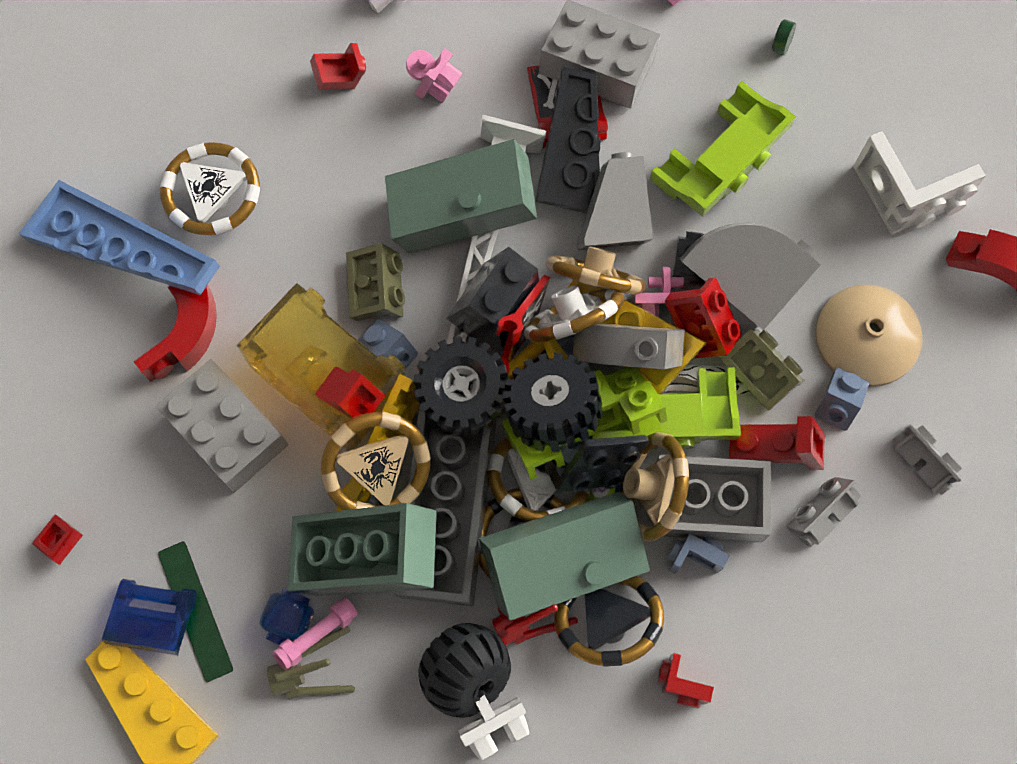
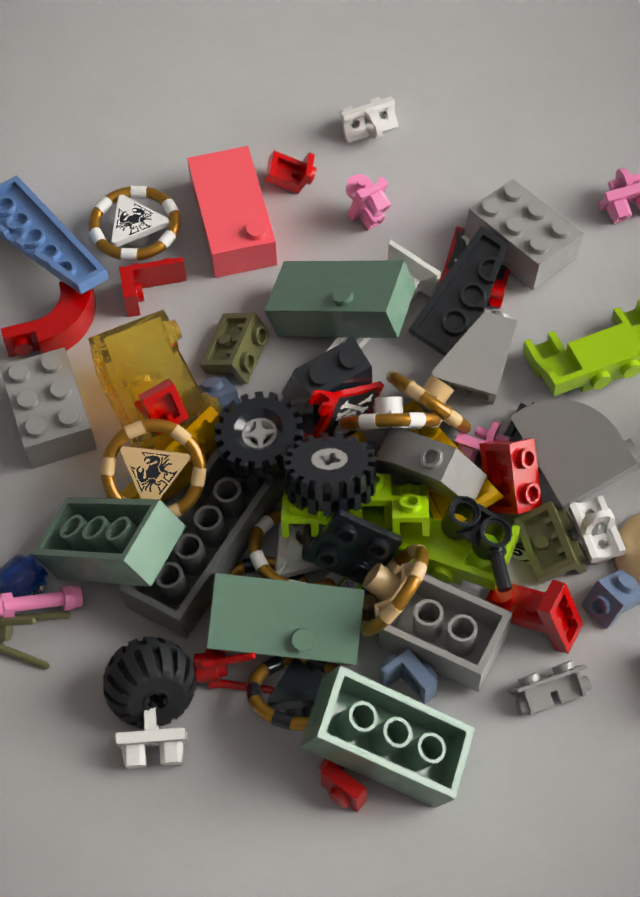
camera: 25 degrees right, 15 degrees down
(242, 243) = (146, 275): none -> red bracket
(302, 136) = (232, 211): none -> coral brick
(705, 397) = (480, 522): none -> black beam
(713, 633) = (388, 737): none -> sand green brick
(792, 329) = (587, 520): none -> white hips

